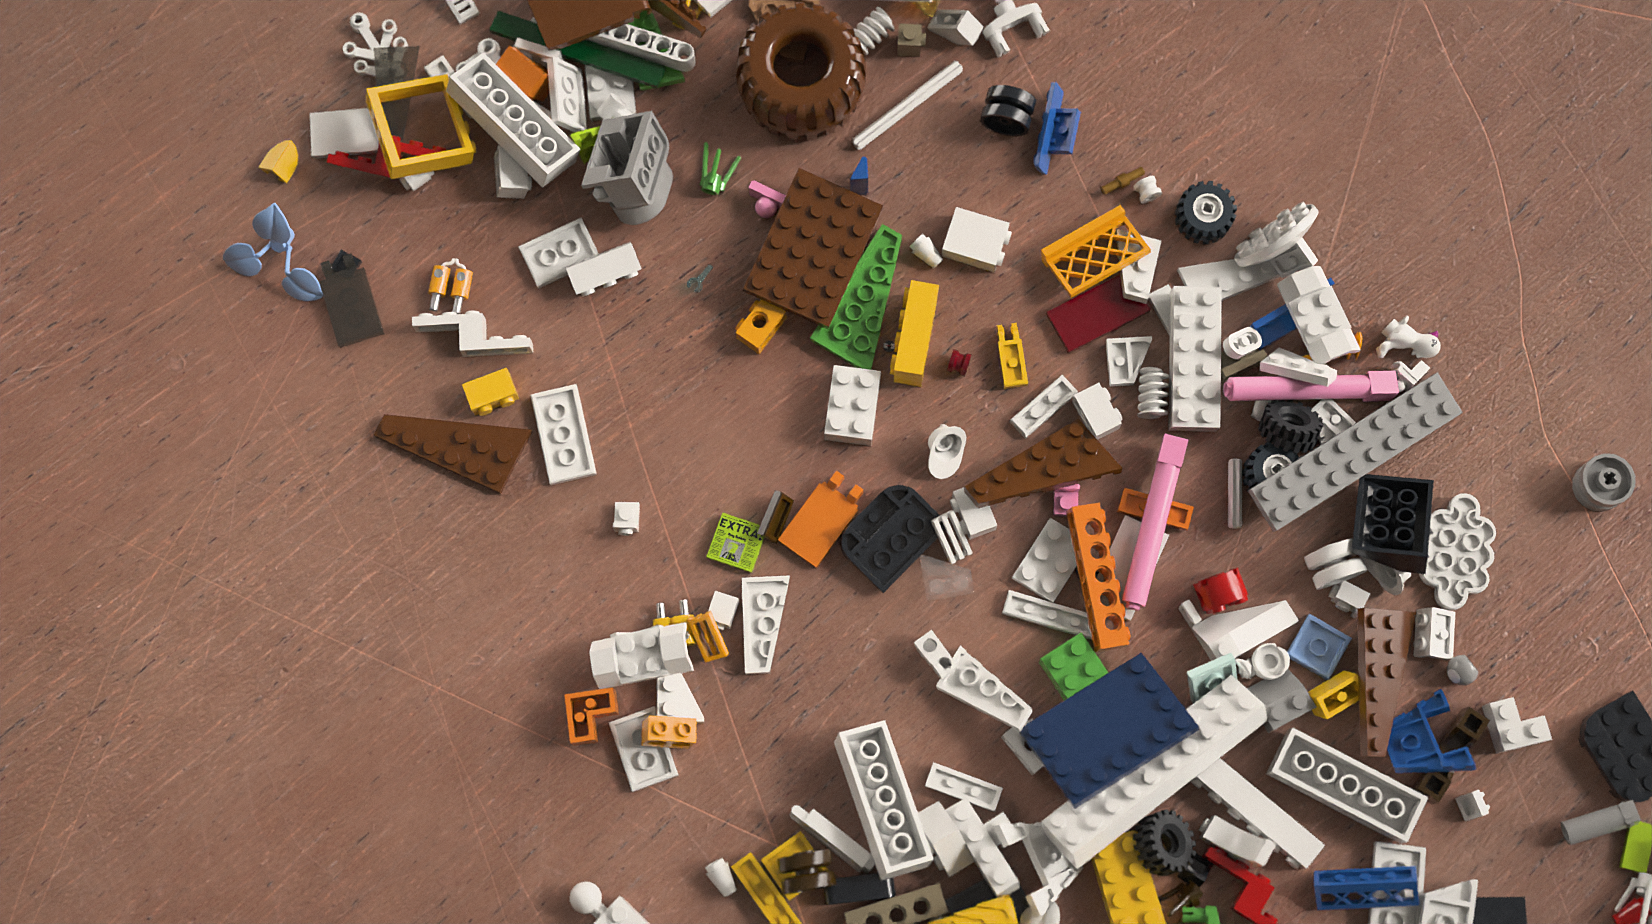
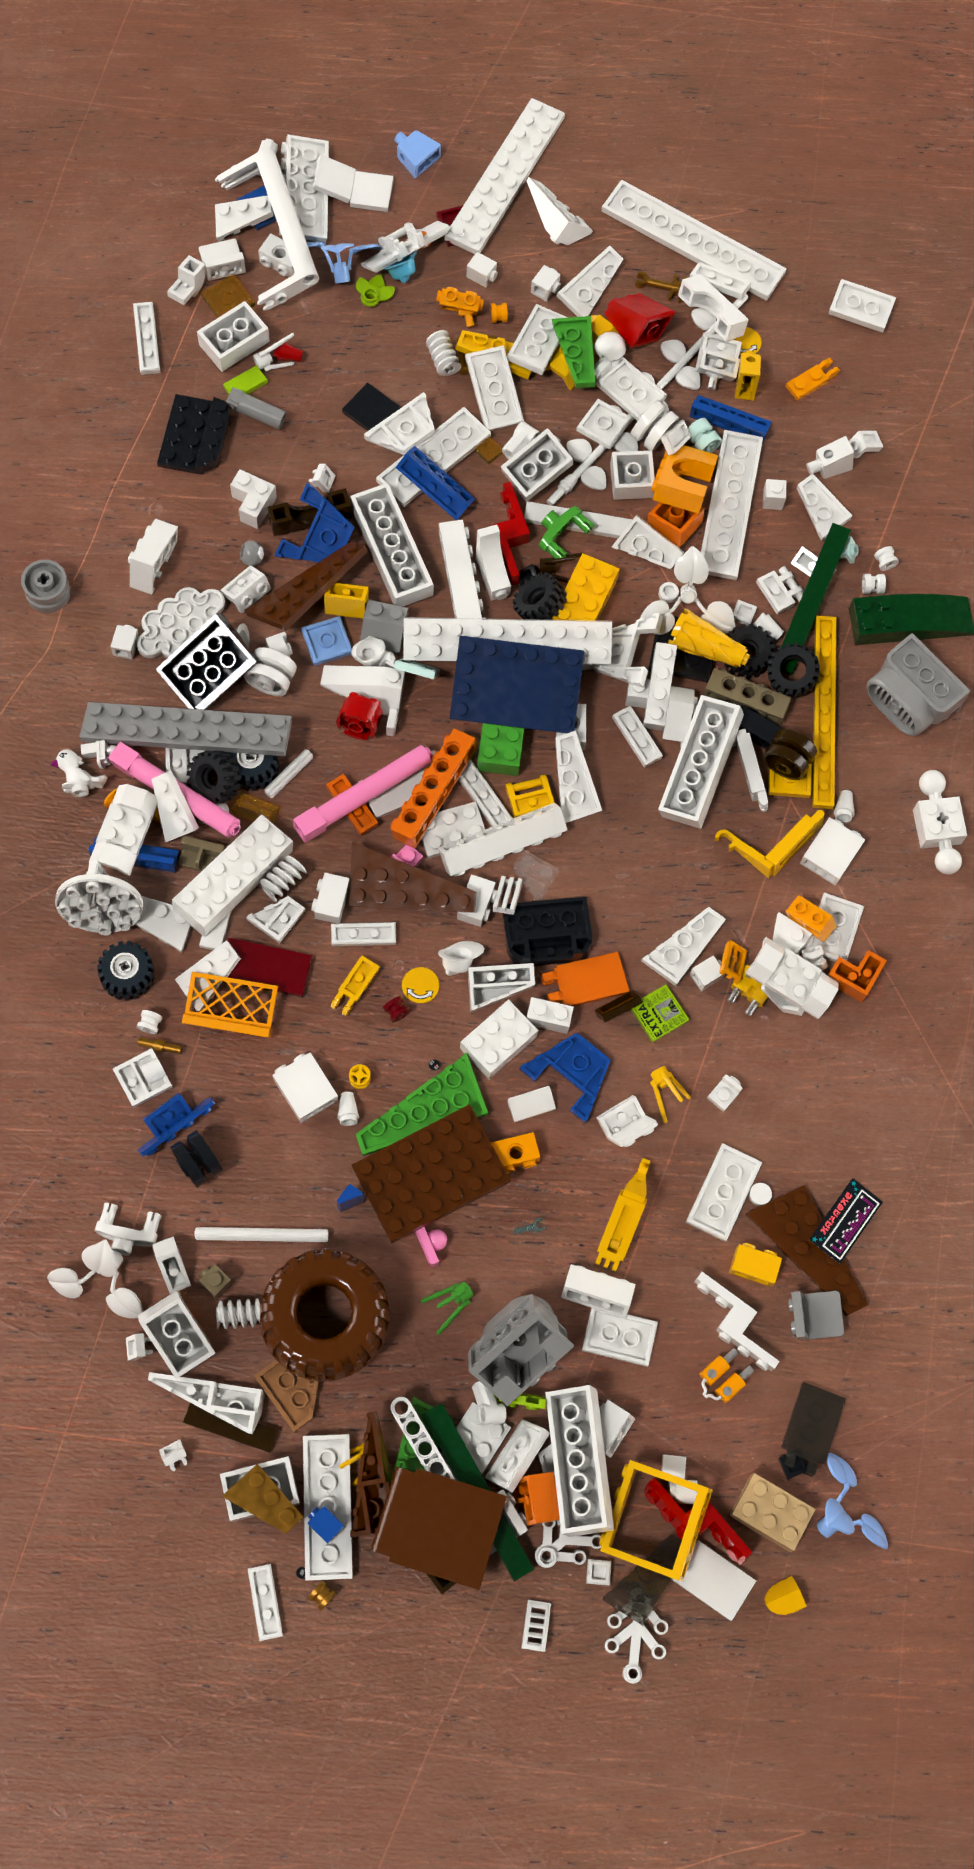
camera: 150 degrees left, 5 degrees down
(335, 211) = (772, 1512): none -> tan brick
(410, 389) = (816, 1315): none -> light grey bracket
(439, 188) = (674, 1465): none -> white tile
(441, 490) = (846, 1221): none -> black sticker
(531, 456) = (760, 1194): none -> white tile
(627, 342) = (624, 1219): none -> yellow hinge
(638, 699) = (814, 955): none -> white wheel
(686, 419) = (626, 1122): none -> white bracket
(688, 486) = (664, 1078): none -> yellow plant
(699, 821) = (832, 850): none -> white brick
(743, 781) = (783, 851): none -> yellow hinge
(769, 441) = (579, 1064): none -> blue wing
(781, 377) = (531, 1104): none -> white slope
(827, 460) = (550, 1015): none -> white brick
(893, 450) = (498, 983): none -> white wedge
(915, 336) = (411, 1050): yellow brick -> none
(935, 654) = (586, 827): white leg -> none
(944, 281) = (359, 1071): none -> yellow wheel
(958, 404) = (420, 985): none -> yellow sticker
(998, 583) = (503, 839): none -> white brick
(1003, 643) = (529, 801): none -> yellow plate
(1111, 144) = (142, 1078): none -> white plate
(1242, 343) = (192, 855): white plate -> none
(1251, 432) = (239, 802): none -> clear yellow tile
(1487, 491) = (124, 641): none -> white brick
(1547, 592) = (150, 554): none -> white wedge

